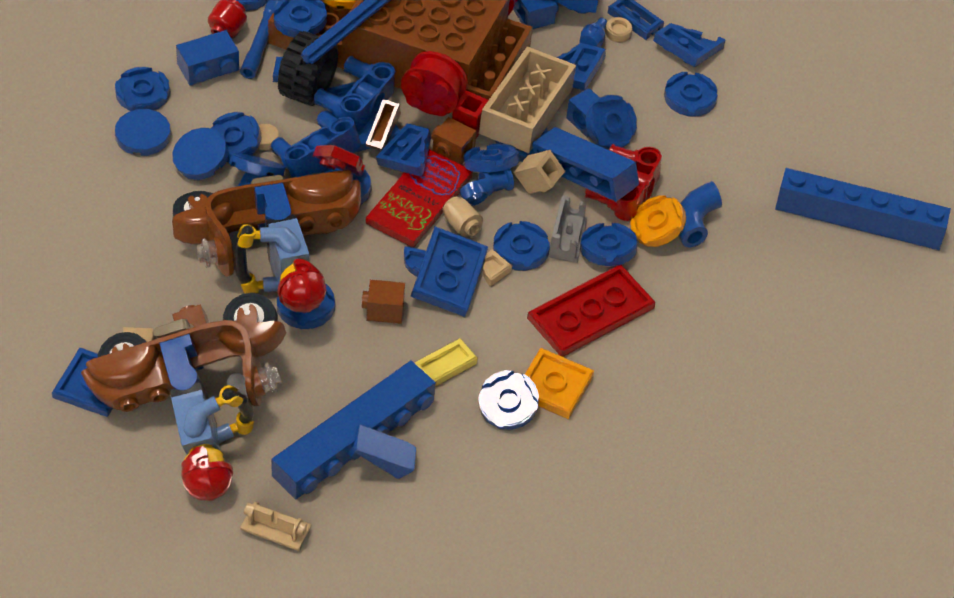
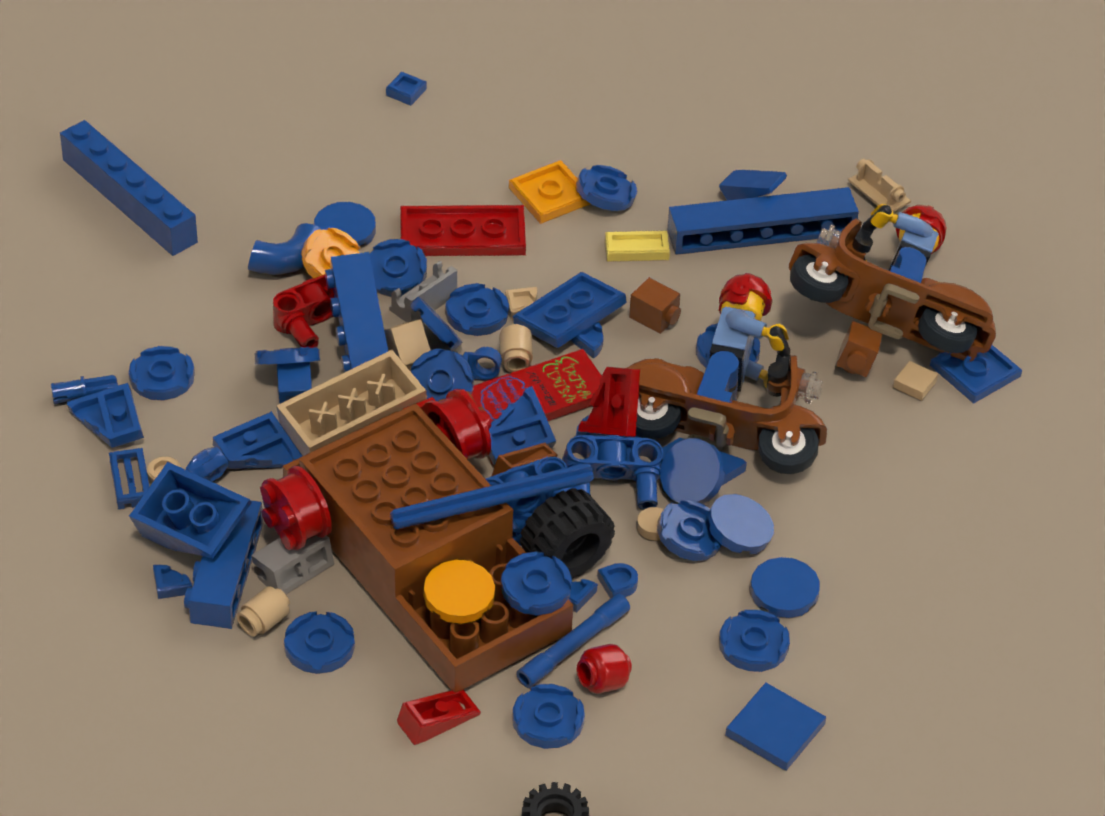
camera: 145 degrees left, 5 degrees down
(93, 40) = (775, 726): none -> blue tile
(207, 57) = (659, 631): blue brick -> none
(261, 89) = (618, 579): none -> blue tile
(531, 193) = (436, 323): none -> blue tile
(681, 267) = (350, 218): none -> blue tile
(726, 54) = (79, 388): none -> blue axle
(761, 430) = (406, 88): none -> blue tile

